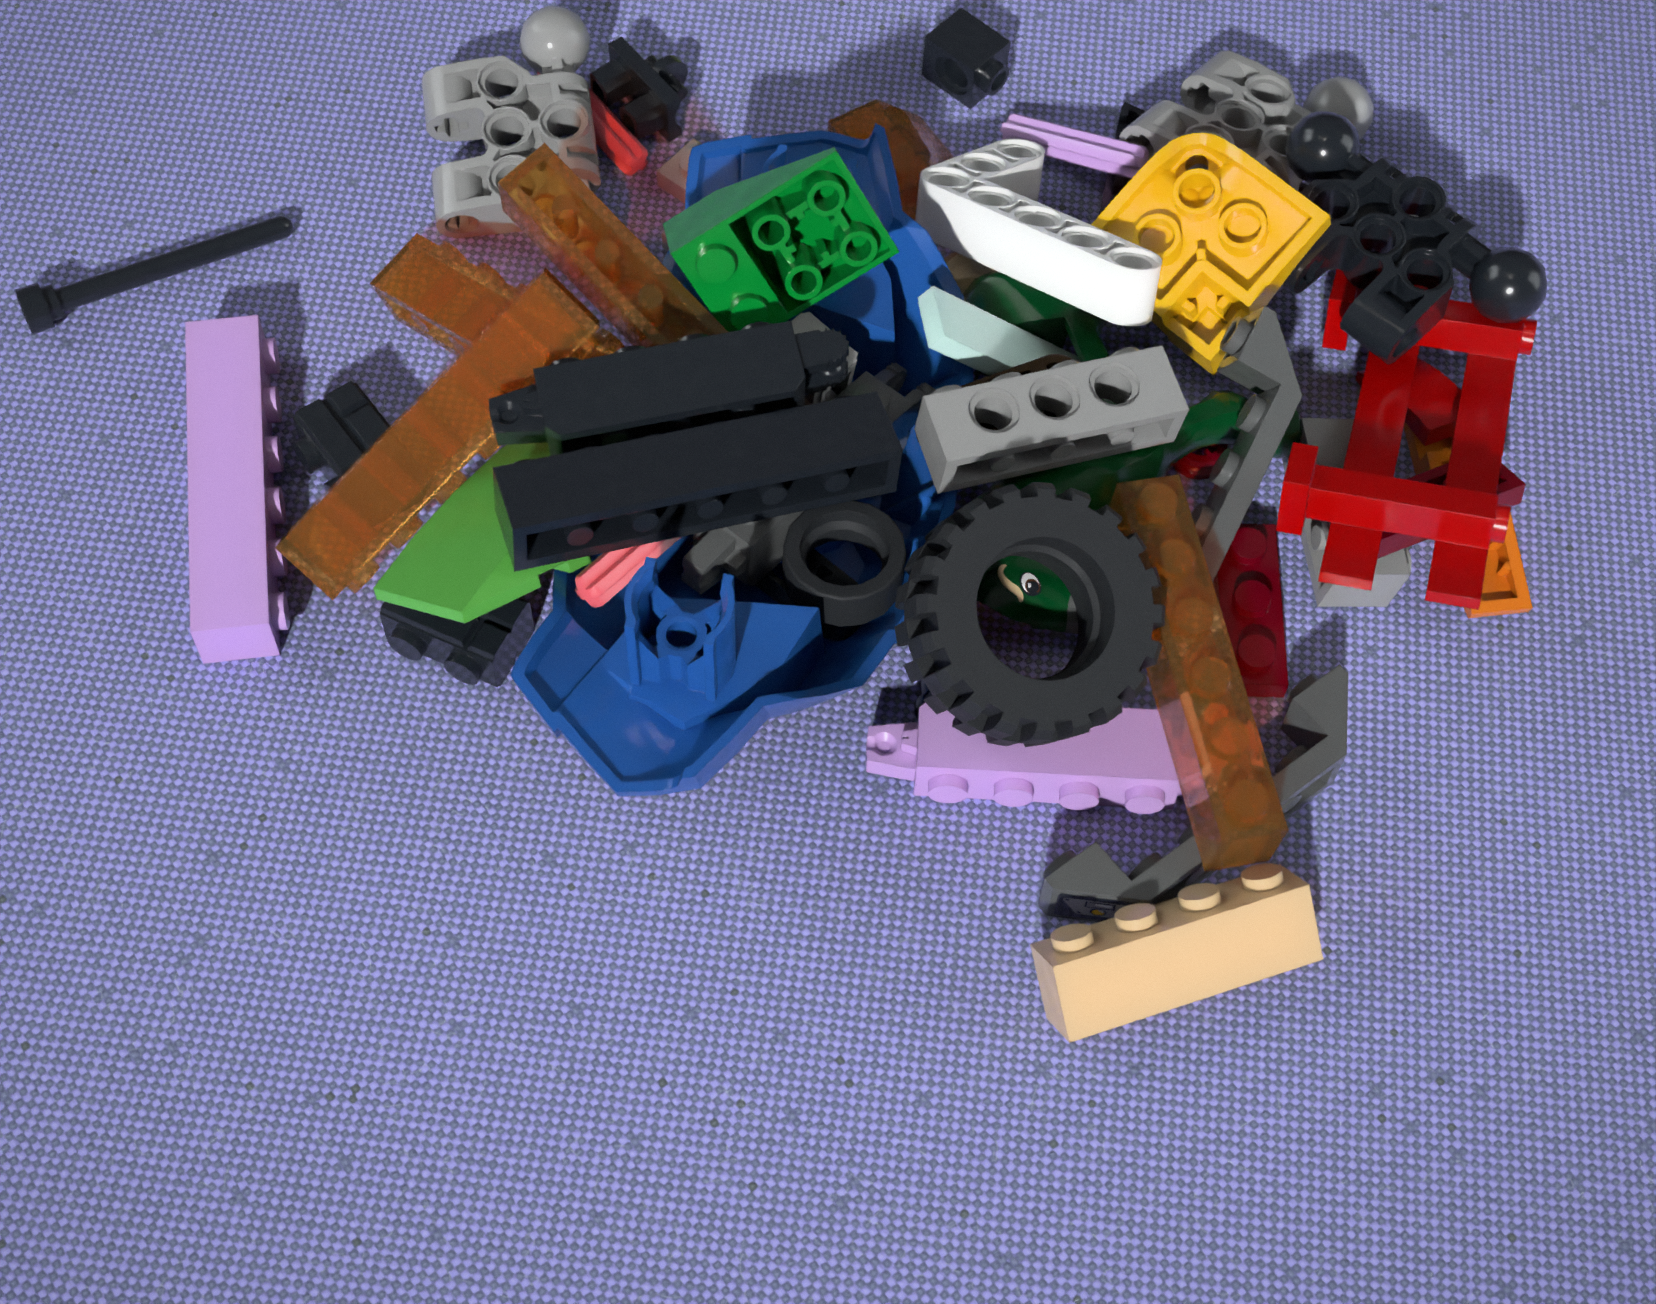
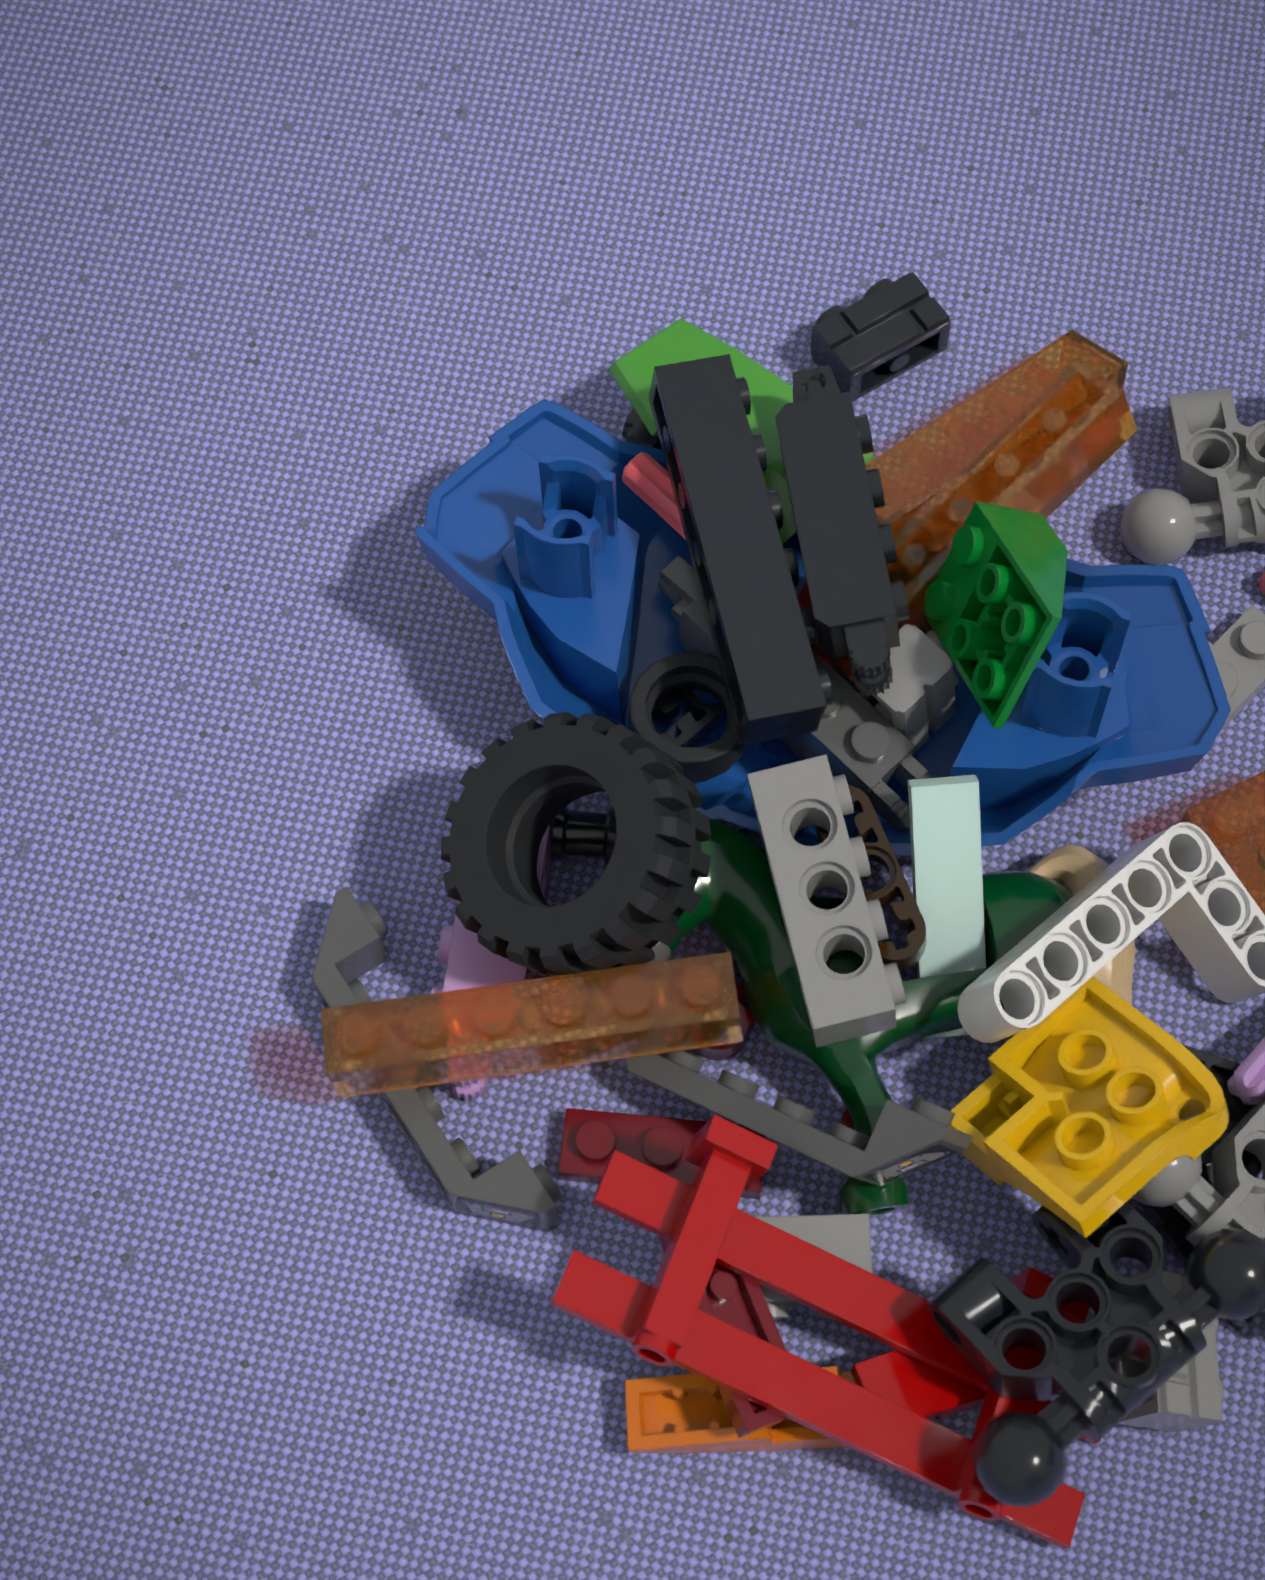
camera: 100 degrees right, 5 degrees up
(47, 305) = (1065, 82): black piece -> none
(233, 491) = (850, 237): lavender brick -> none
(435, 439) = (798, 331): clear orange brick -> none
(1176, 950) = (263, 1005): tan brick -> none

